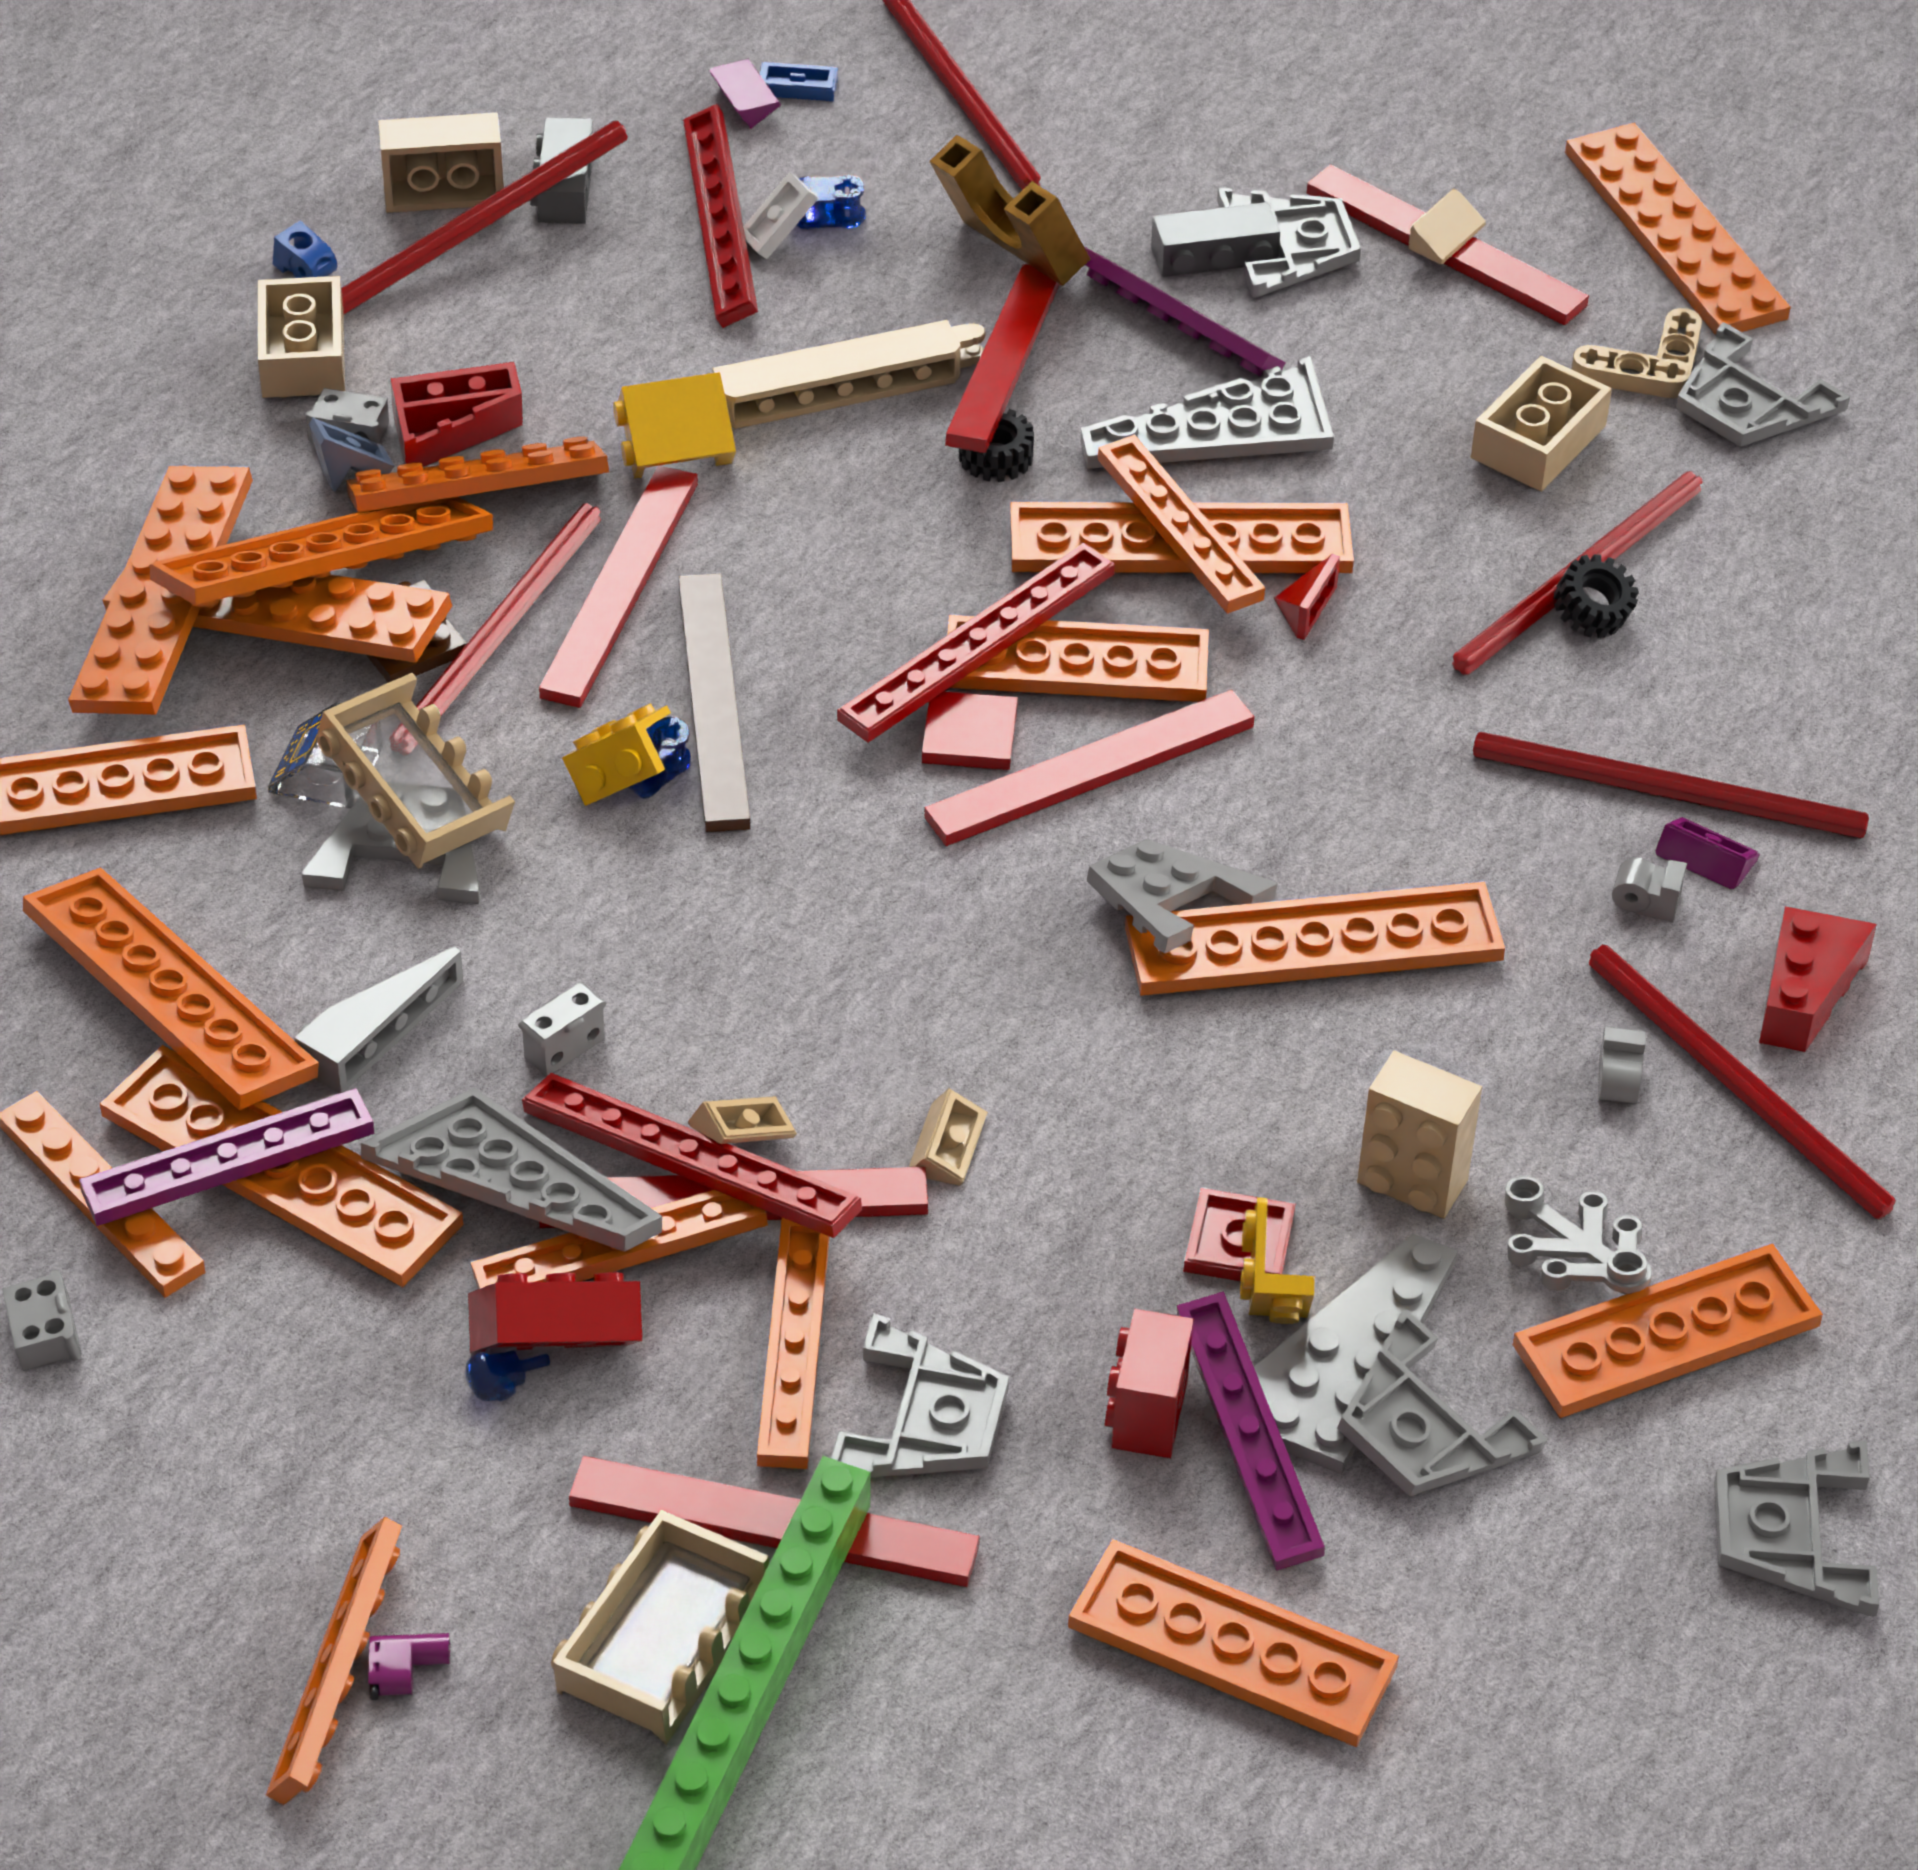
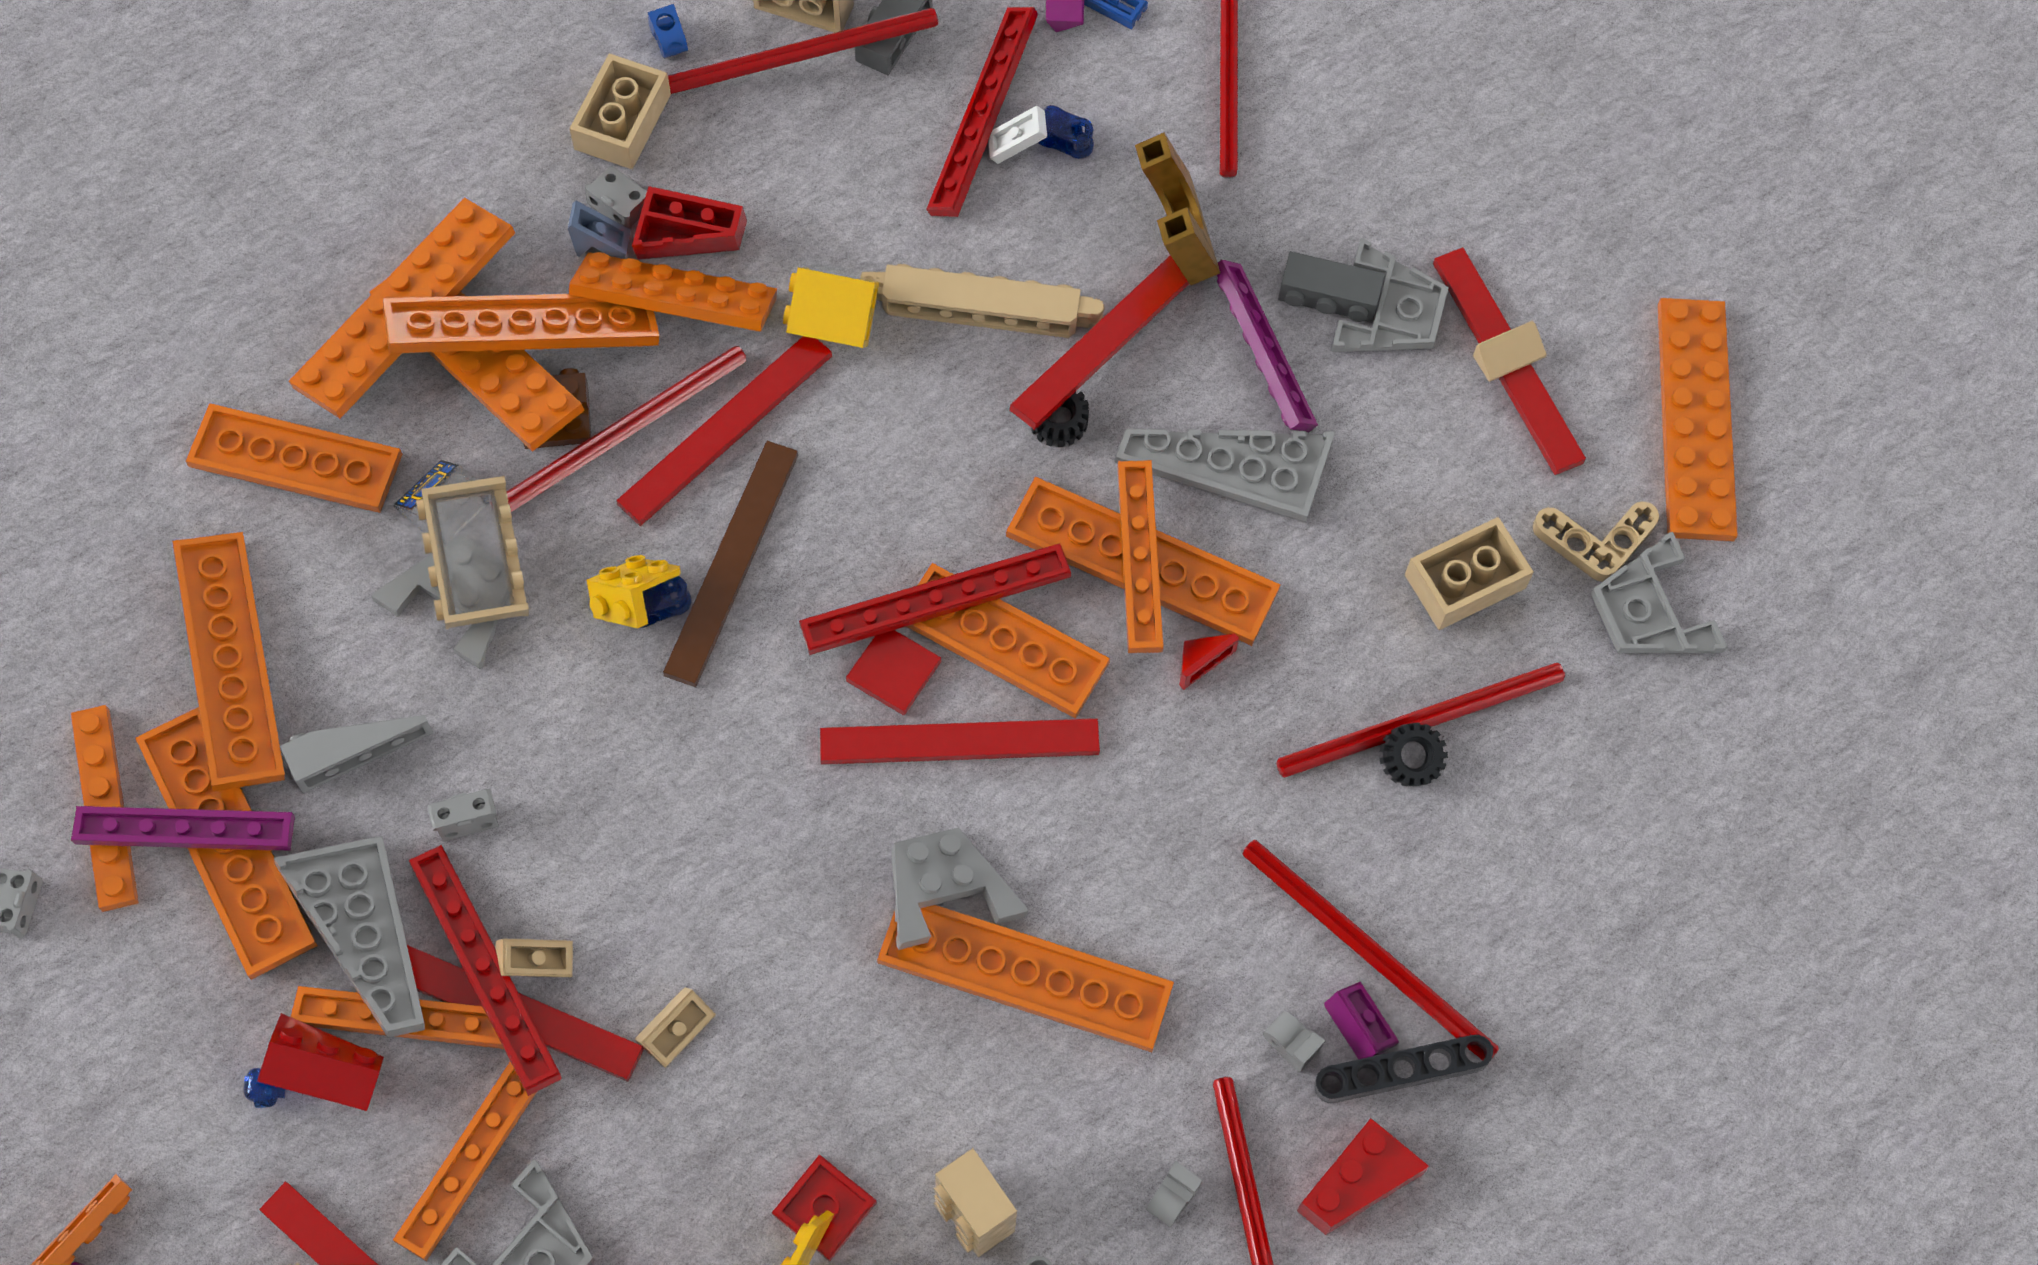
camera: 25 degrees right, 20 degrees up
(1784, 862) = (1419, 1060): none -> black beam

